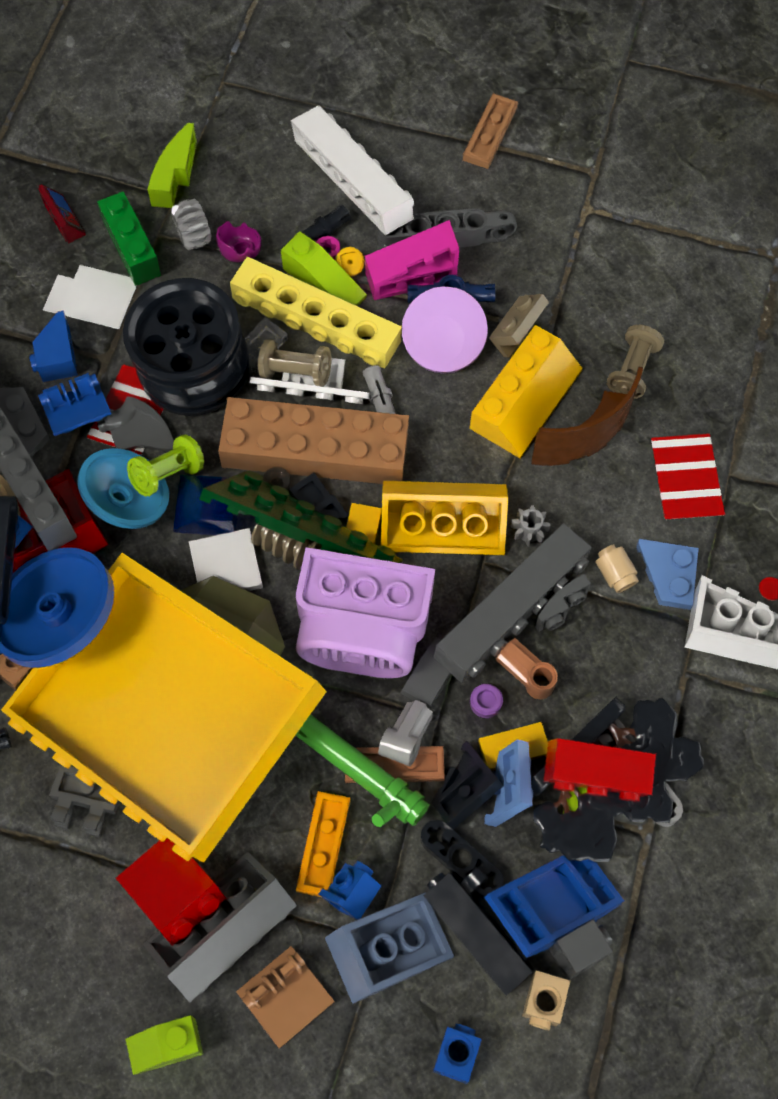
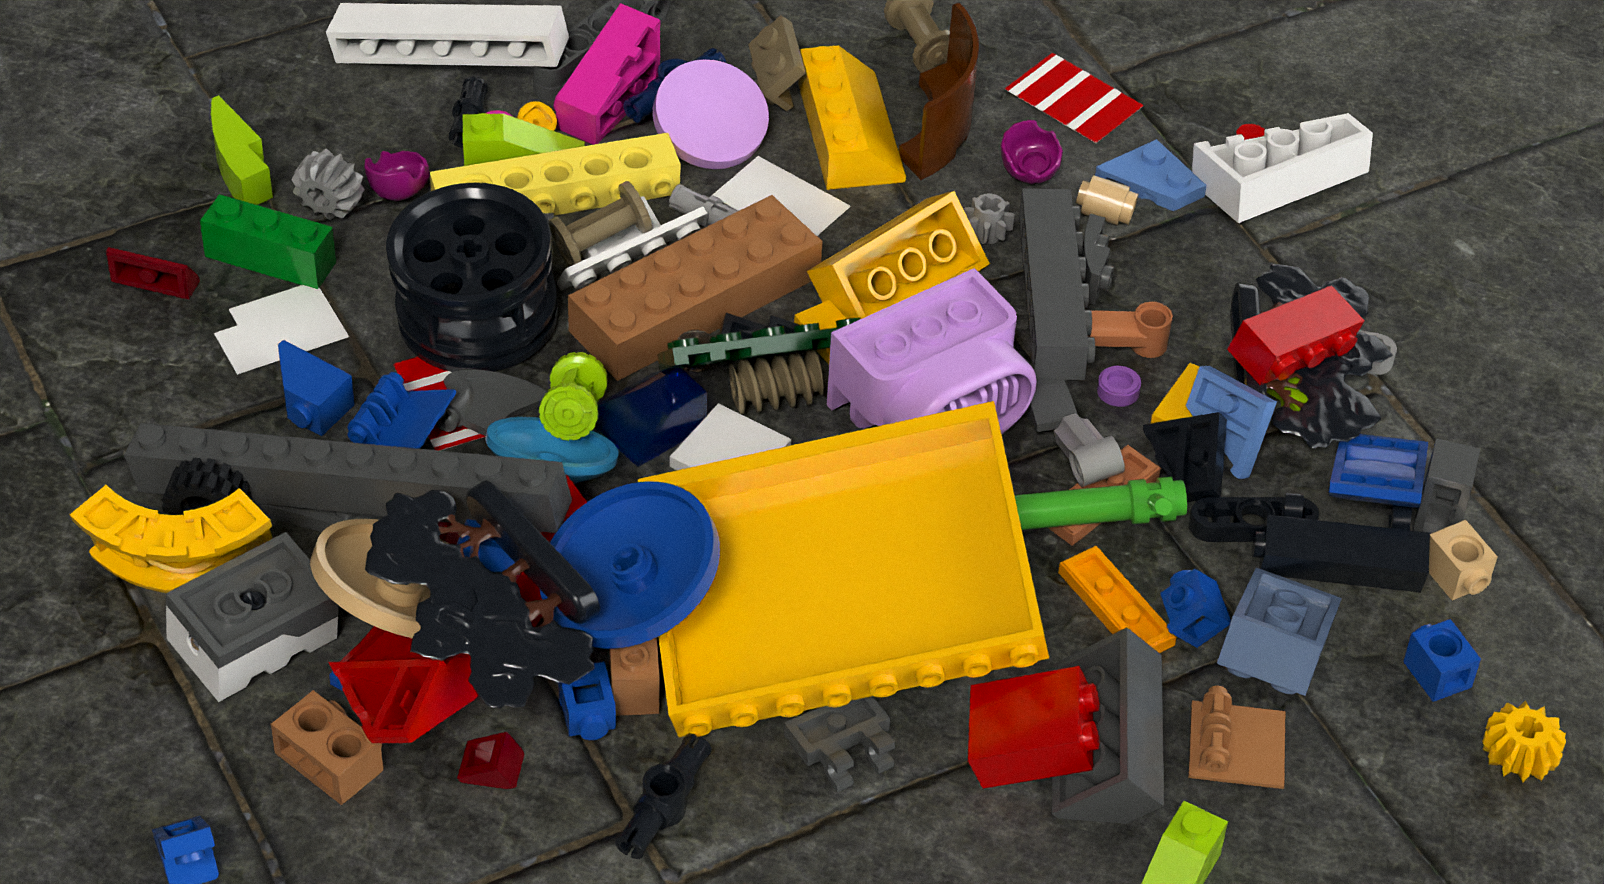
camera: 45 degrees left, 20 degrees down
(435, 417) = (805, 201): none -> white sticker
(604, 499) = (1030, 152): none -> magenta hair

